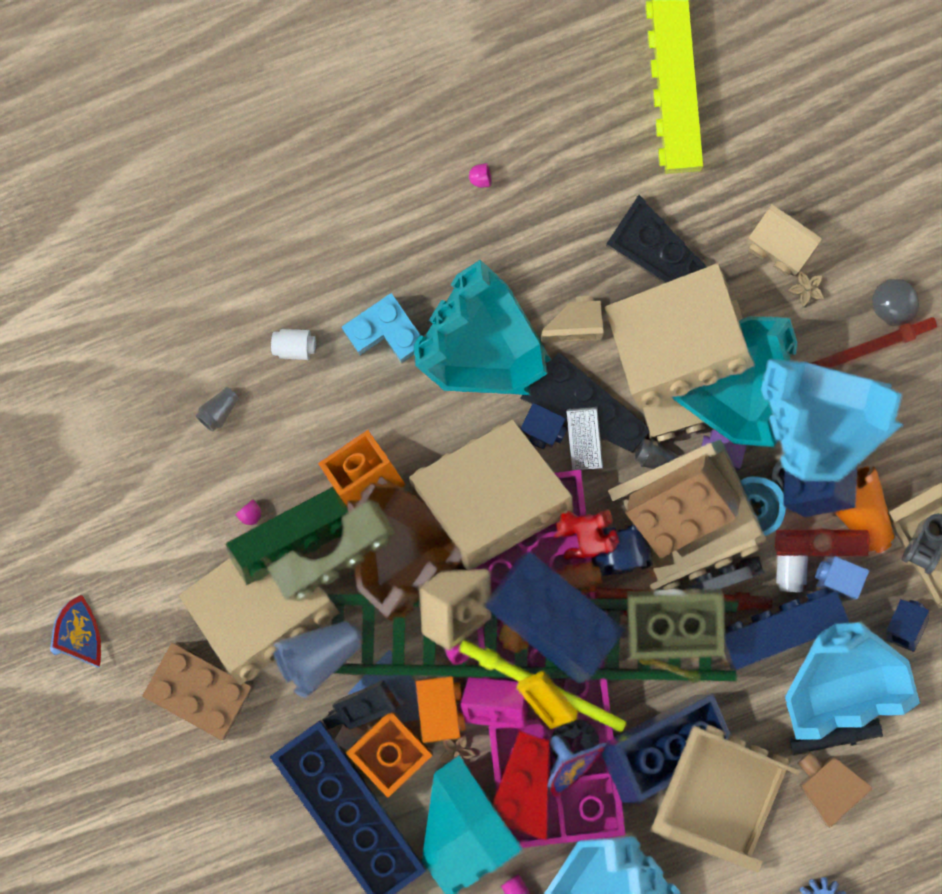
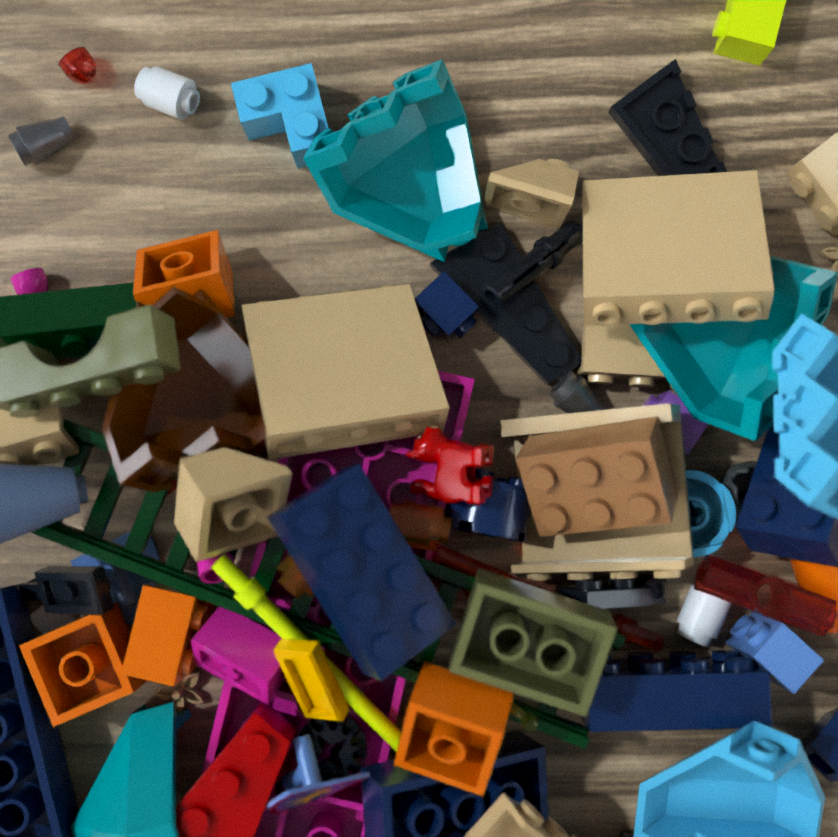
camera: 15 degrees right, 0 degrees up
(223, 348) = (78, 65): none -> clear red hinge
(584, 438) = (494, 344): white tile -> none
(597, 364) = (546, 254): none -> black pin
(646, 695) = (453, 728): none -> orange brick

